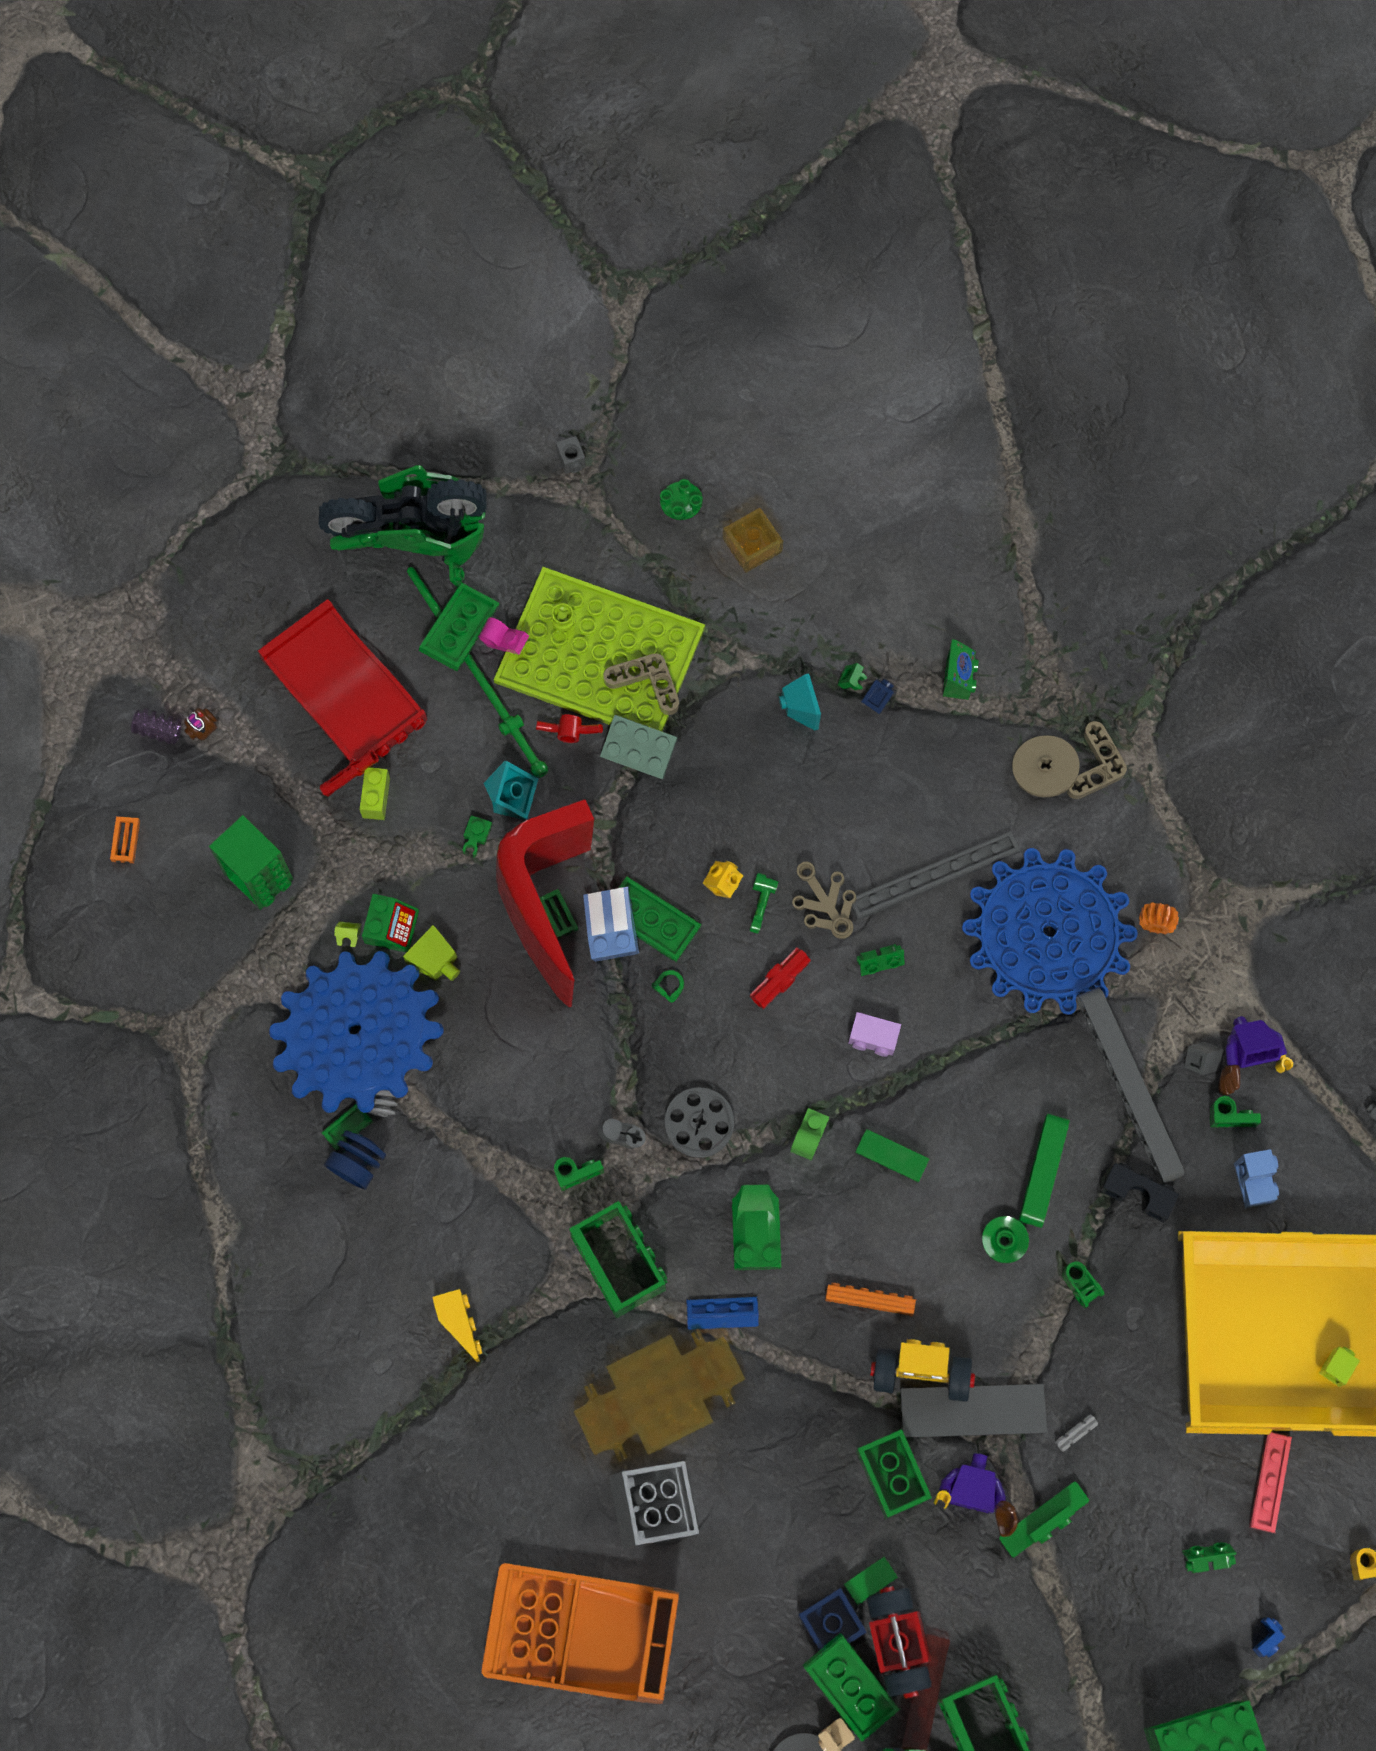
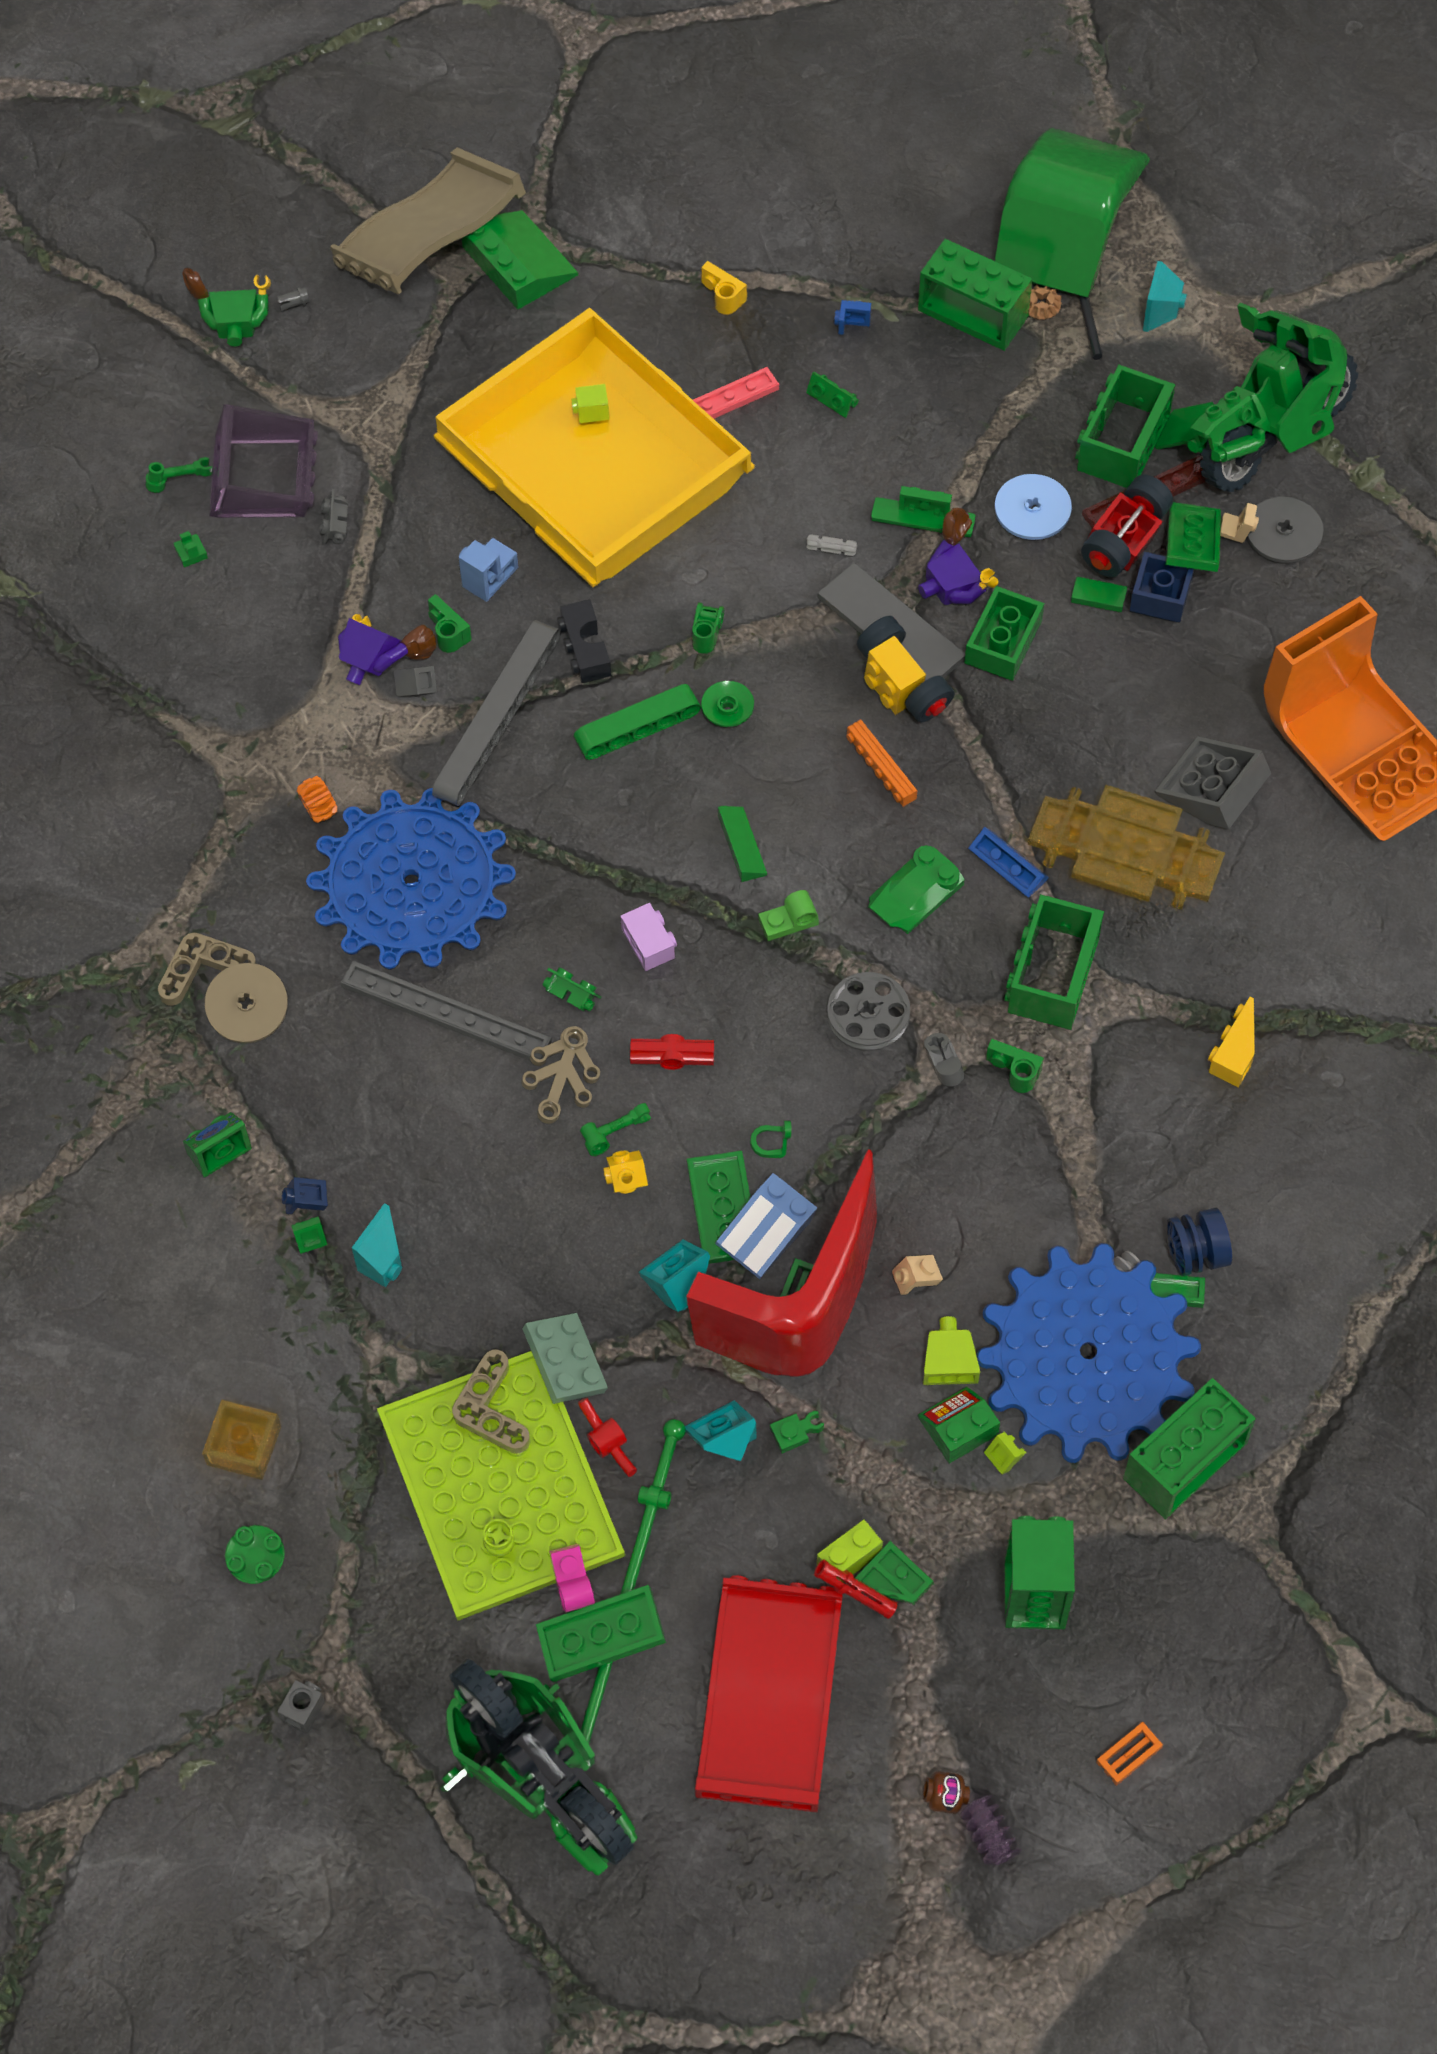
camera: 130 degrees left, 10 degrees down
(240, 1022) = (1189, 1448): none -> green hose
(340, 808) = (895, 1576): none -> green wing
(501, 987) = (916, 1272): none -> tan bracket
(631, 850) = (675, 1272): none -> teal slope
(994, 1590) = (1023, 492): none -> light blue piece

